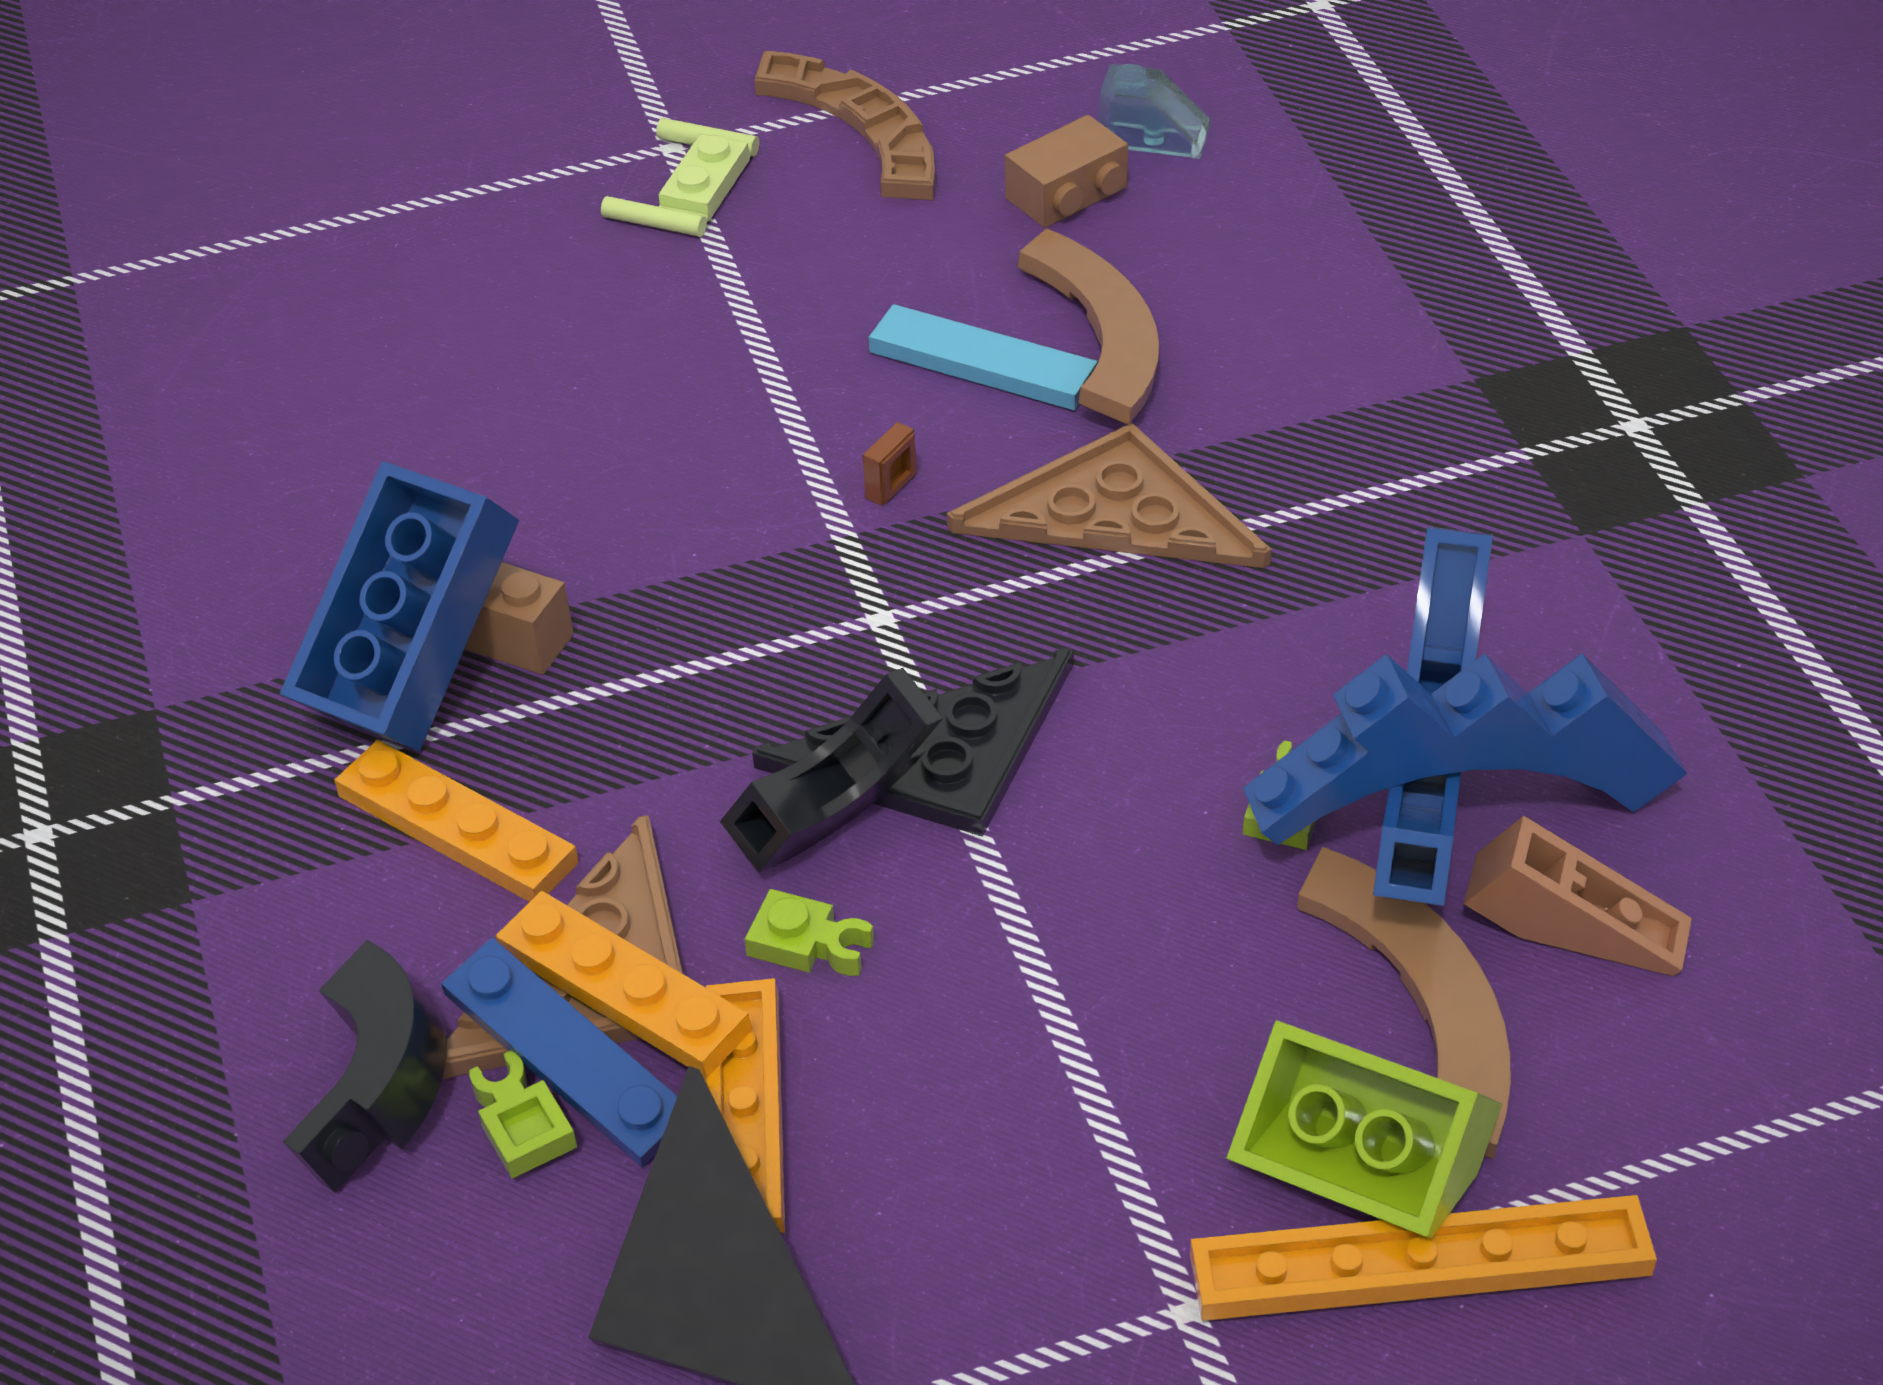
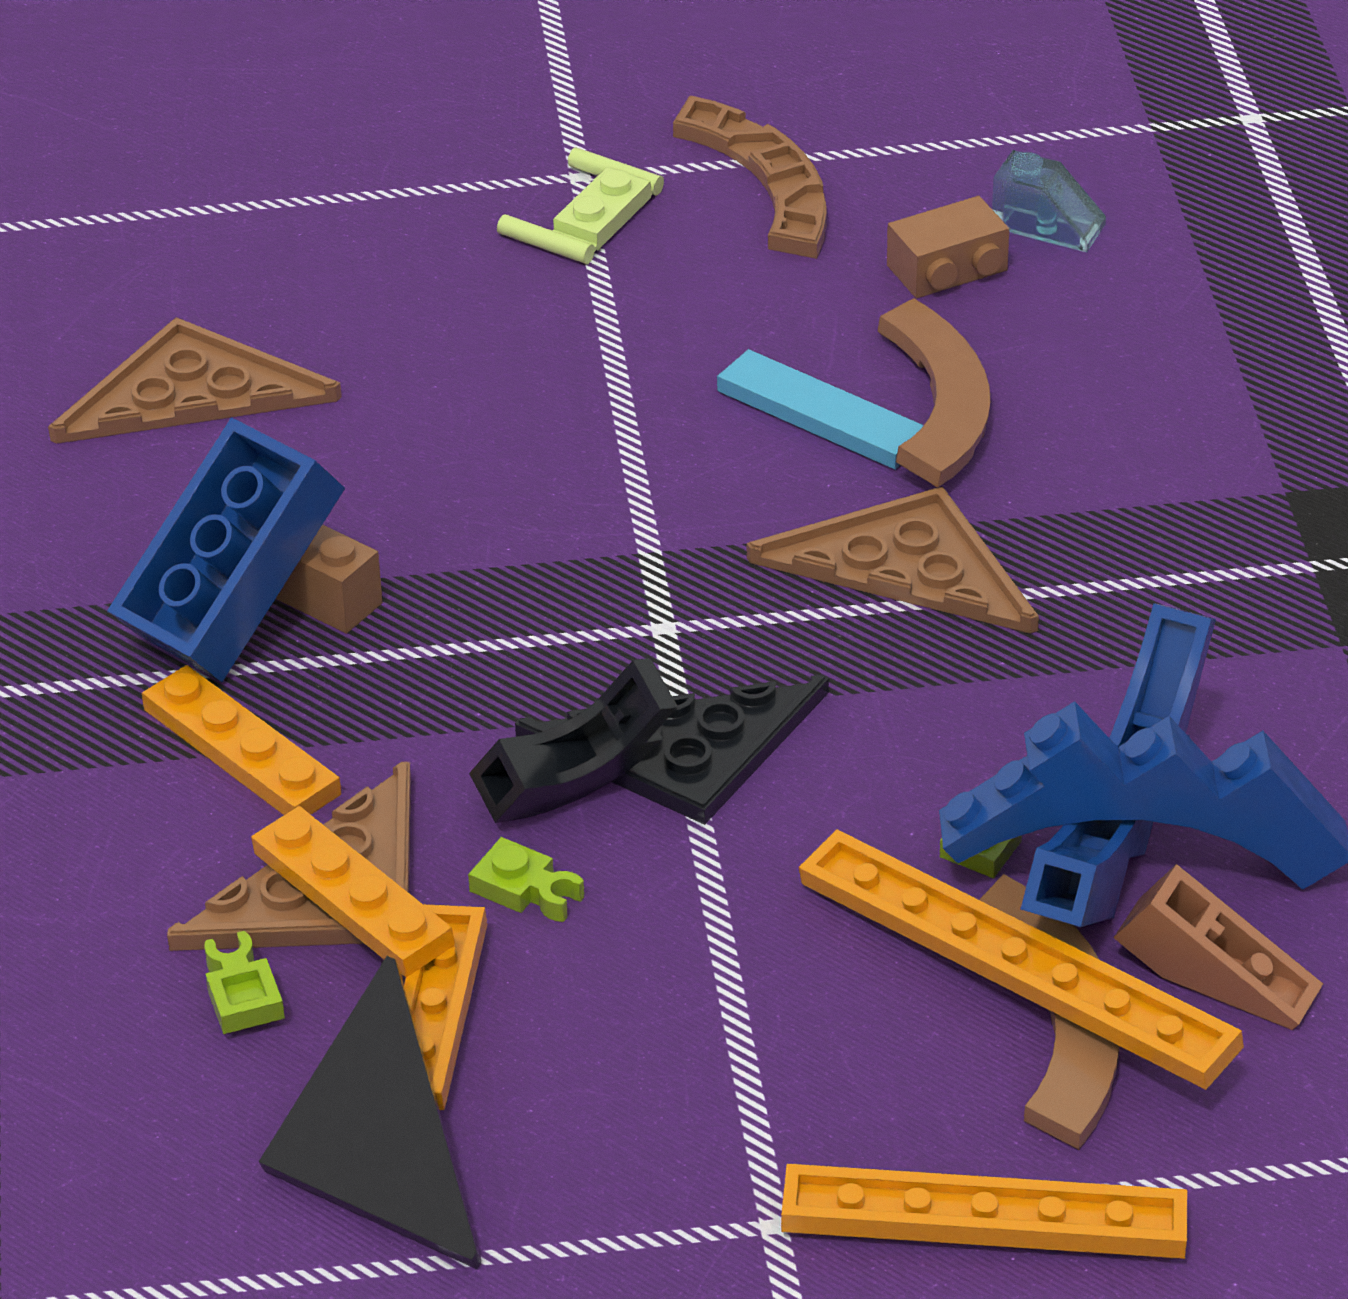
camera: 10 degrees right, 5 degrees down
(310, 416) = (188, 379): none -> medium nougat tile
(391, 1073) = (134, 934): black arch -> none
(563, 1049) = (285, 932): blue plate -> none
(889, 463) = (704, 492): dark orange tile -> none
(1362, 1130) = (960, 1098): lime slope -> none
(1382, 947) = (1023, 959): none -> light orange plate

